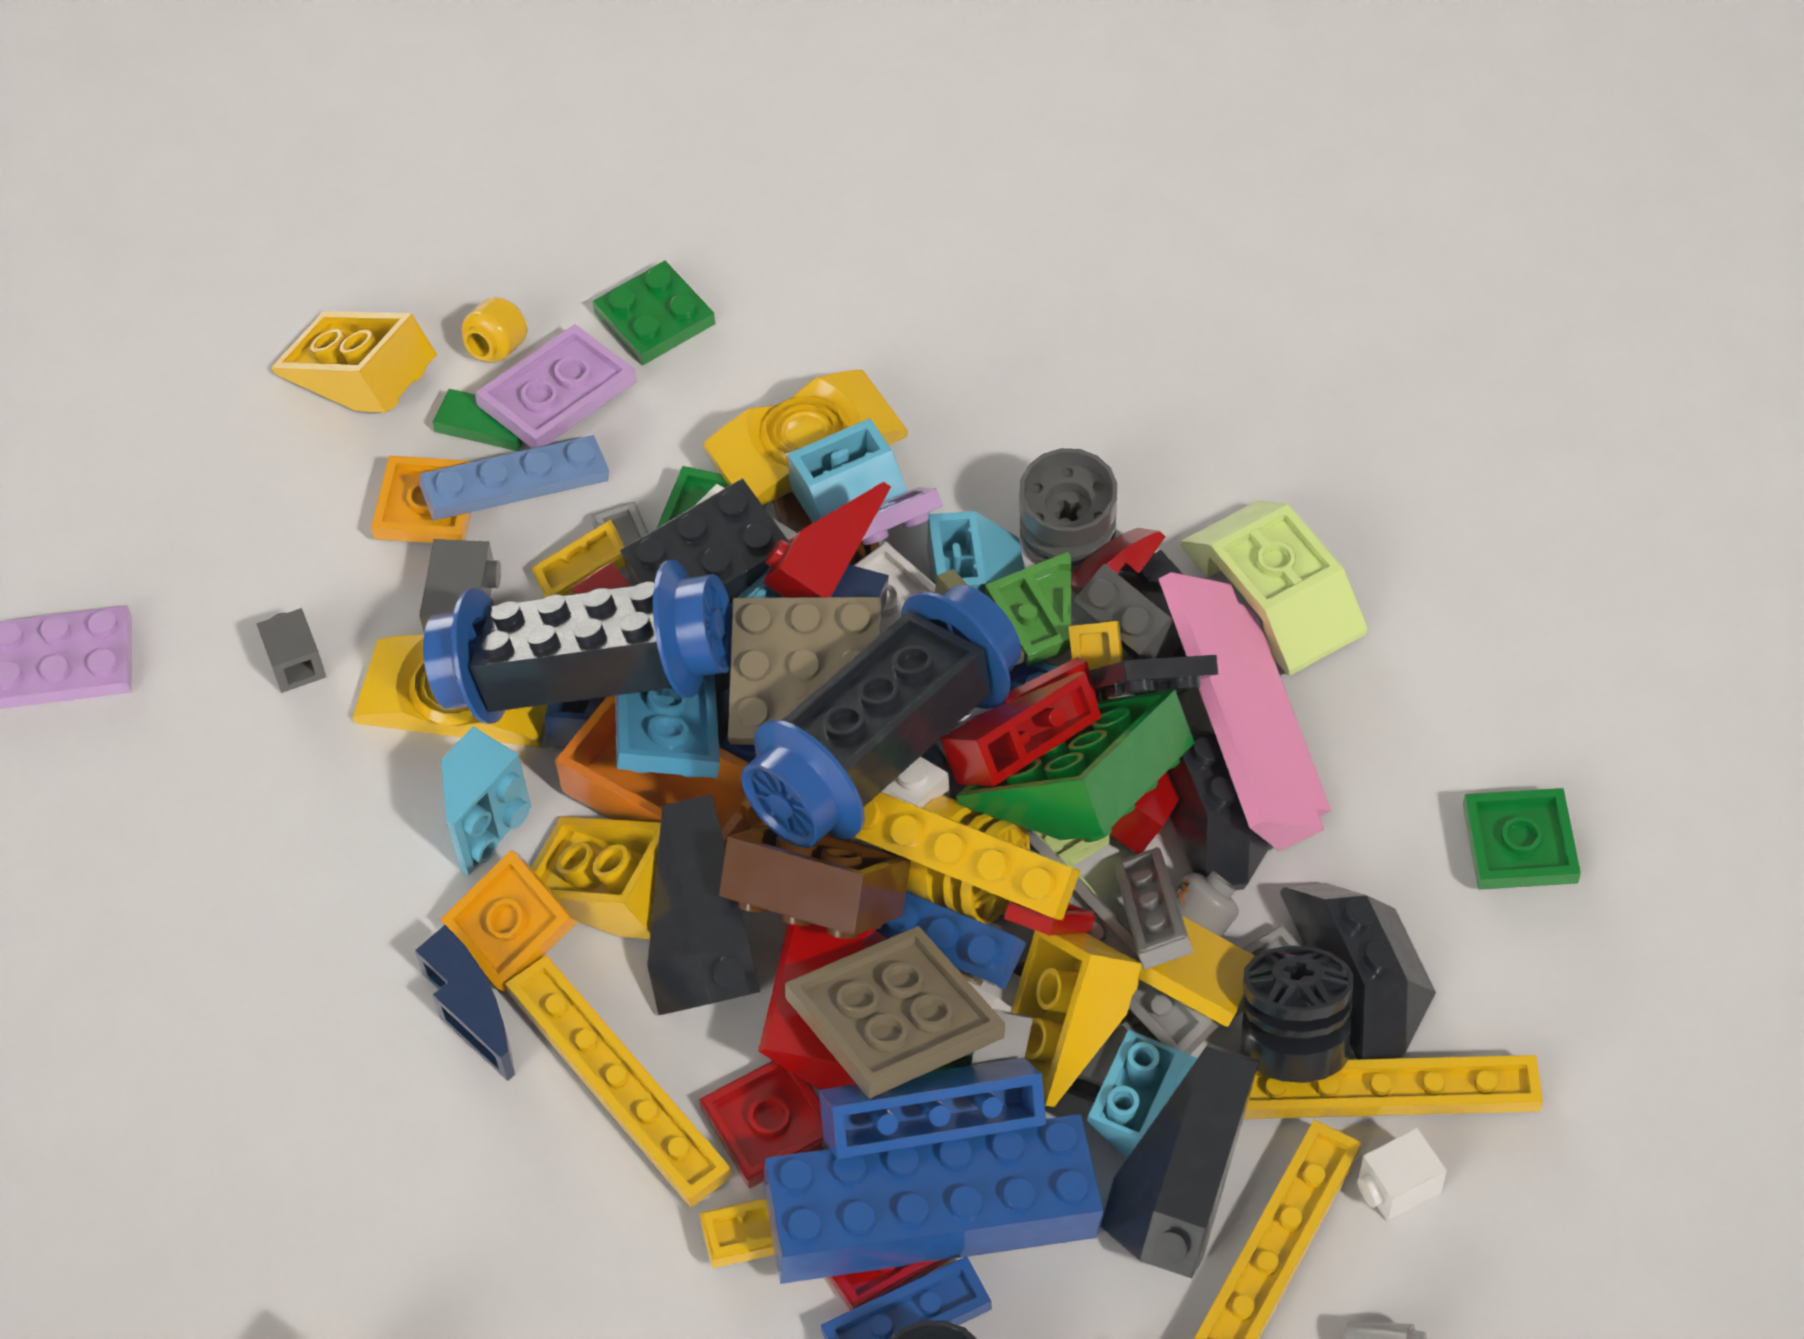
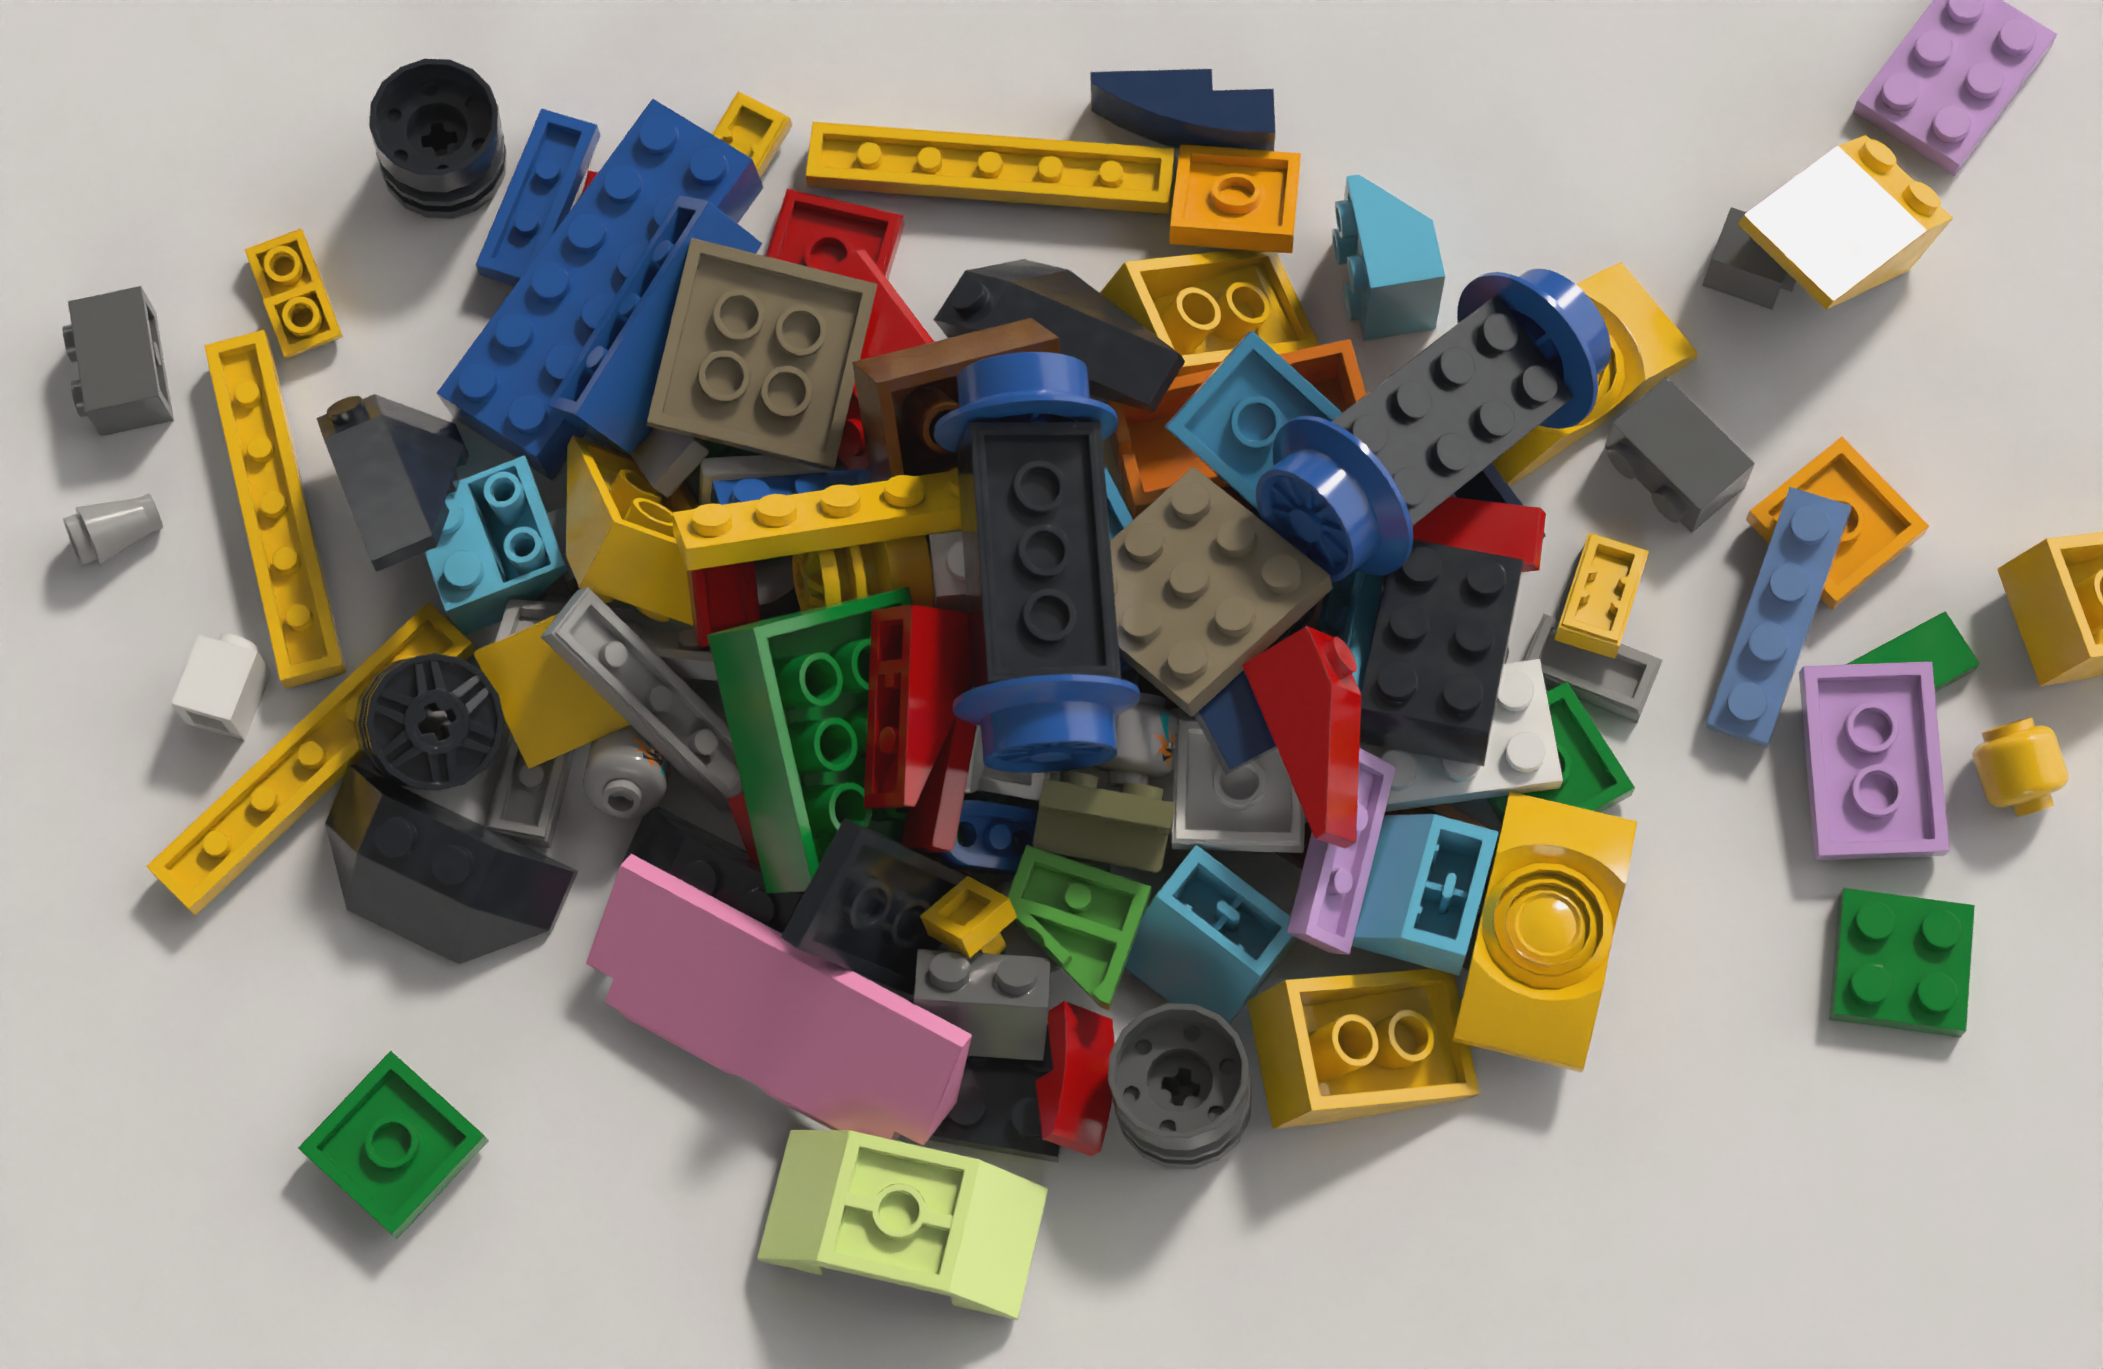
camera: 135 degrees right, 15 degrees up
(232, 599) = (1848, 222): none -> slope
(967, 465) = (1360, 1046): none -> yellow slope

